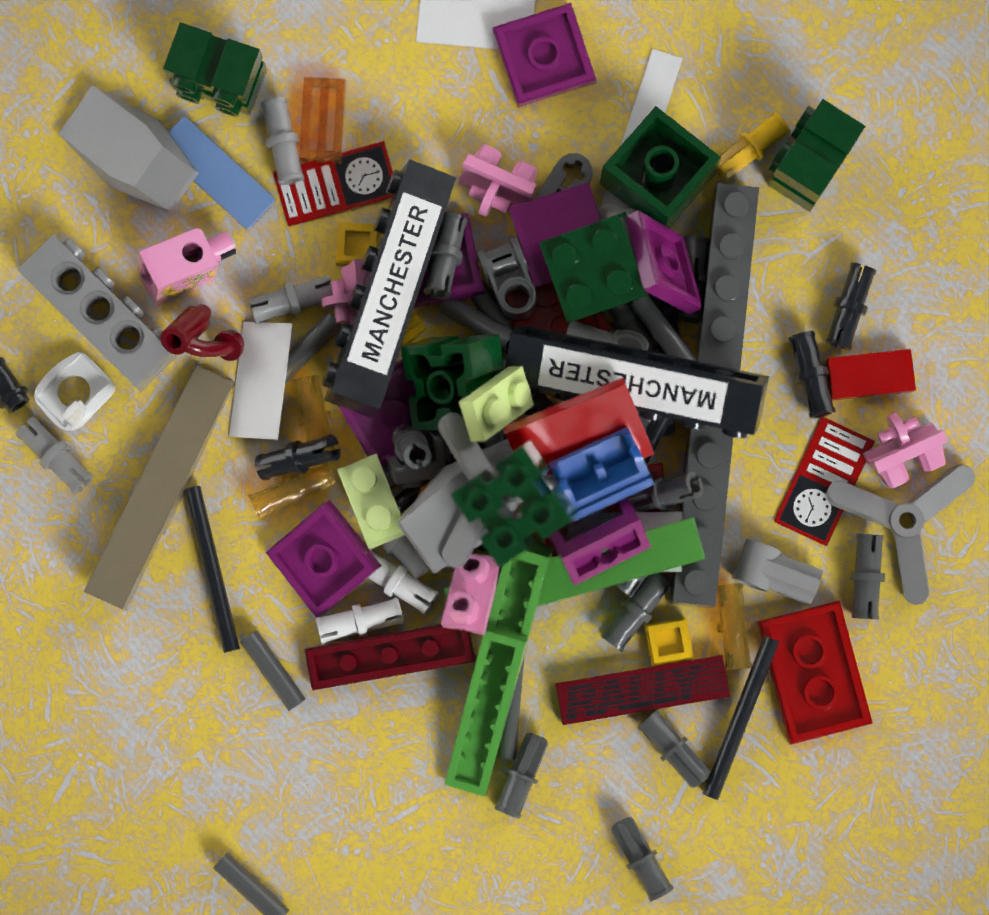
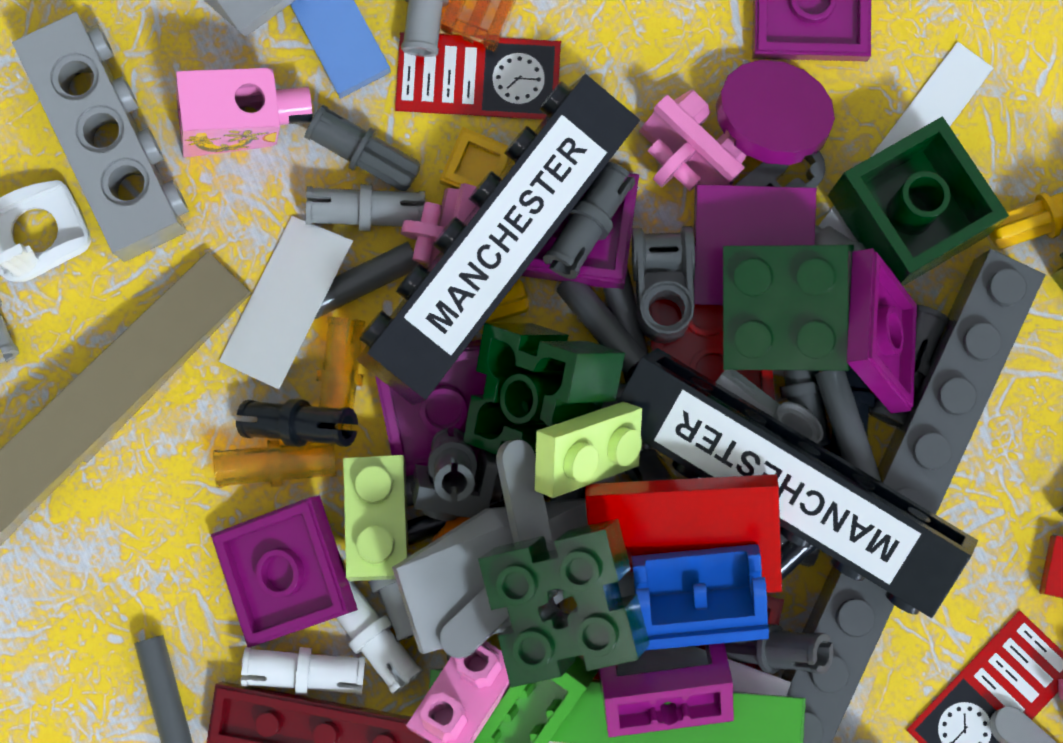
camera: 15 degrees right, 0 degrees up
(186, 329) = (206, 200): dark red plant -> none
(212, 569) = (132, 532): black bar -> none
(276, 260) = (362, 149): none -> dark grey axle
(544, 139) = (775, 112): none -> magenta tile
(811, 374) = (1026, 550): black pin -> none

